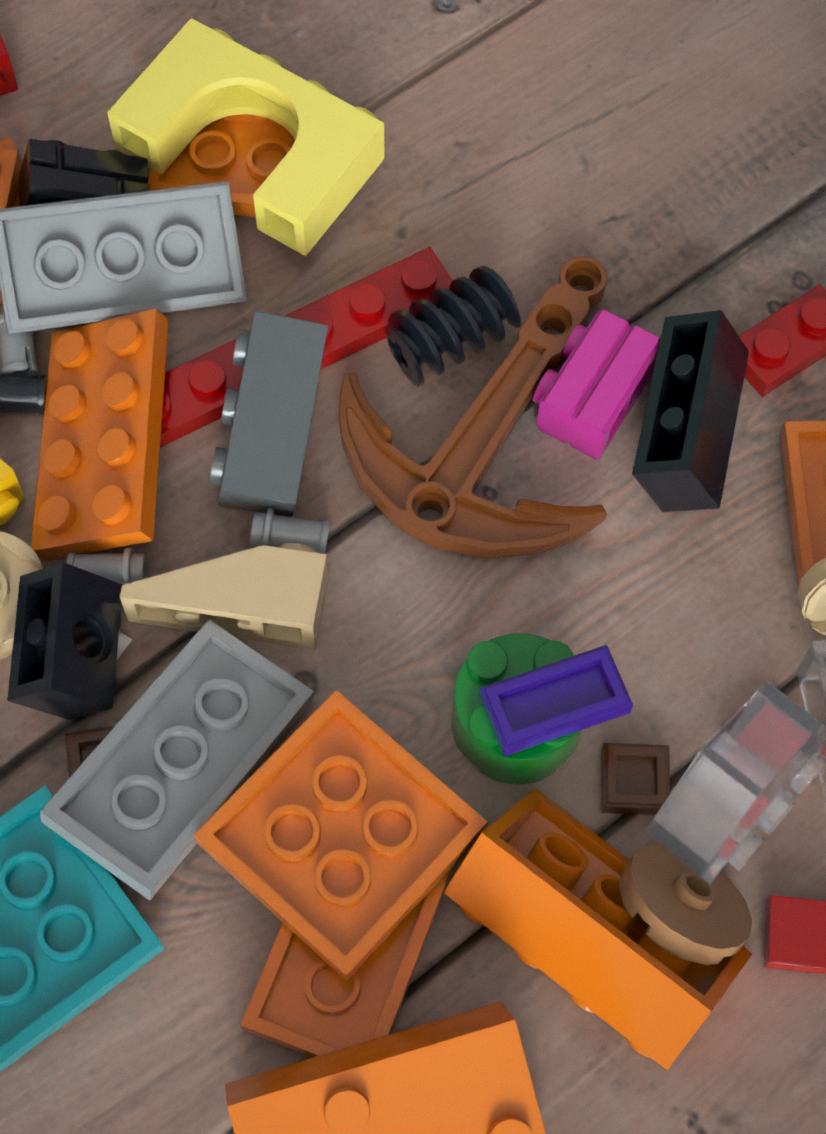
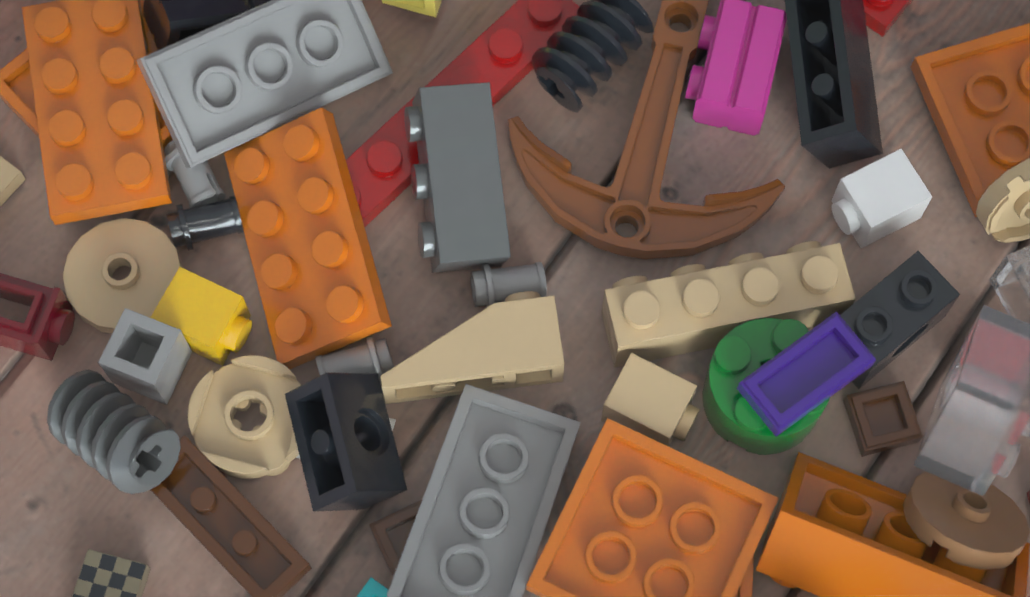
camera: 15 degrees left, 5 degrees up
(394, 691) = (651, 401): none -> tan brick
(455, 608) = (703, 305): none -> tan brick
(679, 674) = (899, 311): none -> black brick
(702, 553) = (879, 199): none -> white brick

